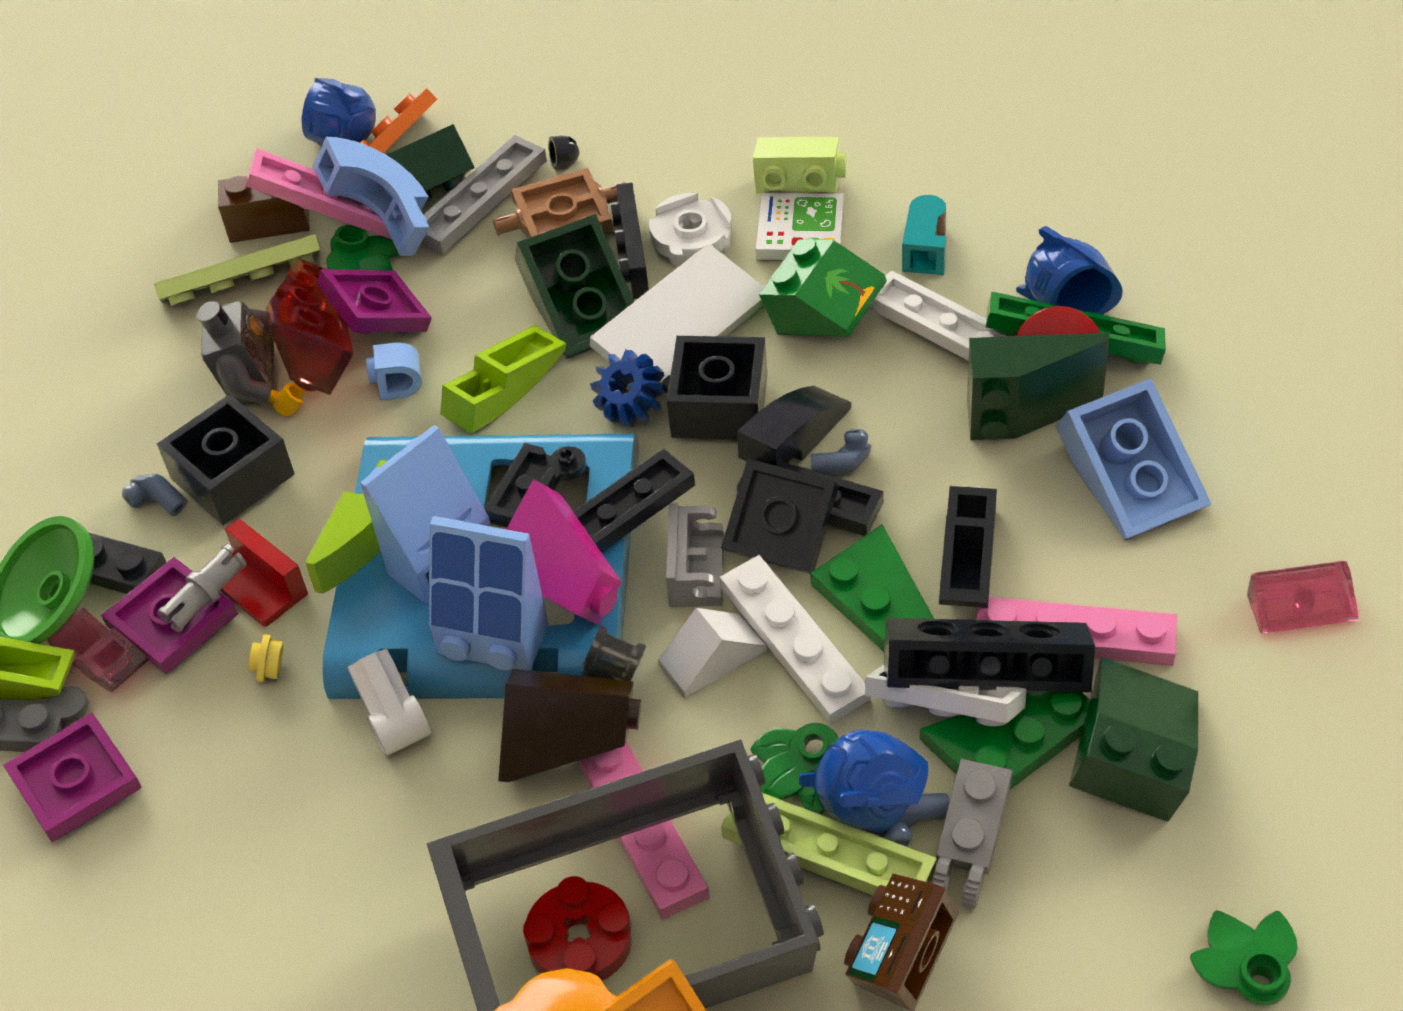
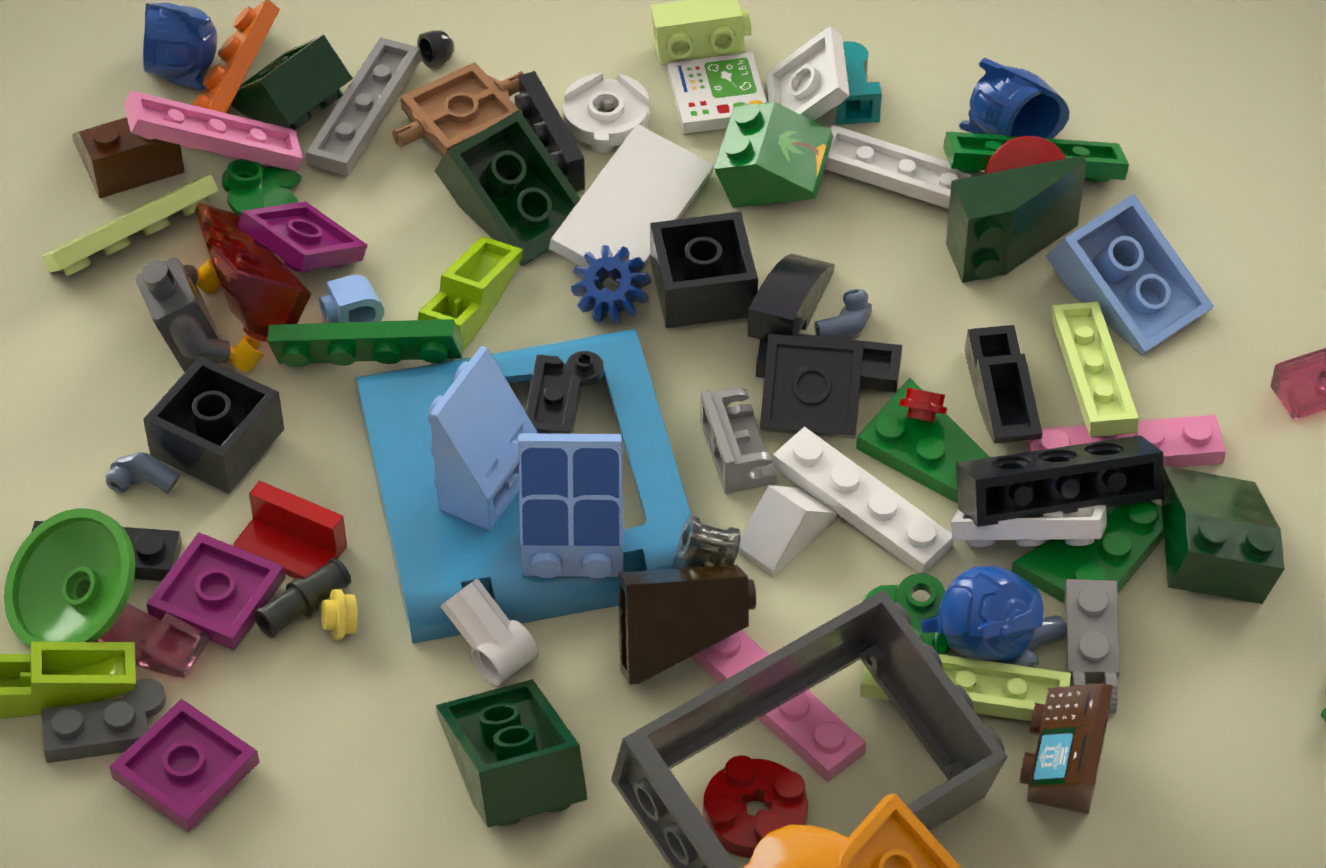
camera: 20 degrees left, 0 degrees up
(202, 588) = (251, 555): light grey pin -> none
(241, 635) = (302, 597): none -> pearl dark grey pin
(344, 543) = (399, 464): lime slope -> none
(364, 829) = (513, 753): none -> dark green slope
(379, 183) = (268, 111): light blue arch -> none
(388, 405) = (365, 341): none -> green plate
(566, 558) = (650, 475): dark pink slope -> none
(634, 498) = (663, 397): black plate -> none
(879, 553) = (923, 404): none -> red plate
(883, 224) = (811, 77): none -> white plate
(1063, 548) = (1094, 369): none -> yellowish green plate

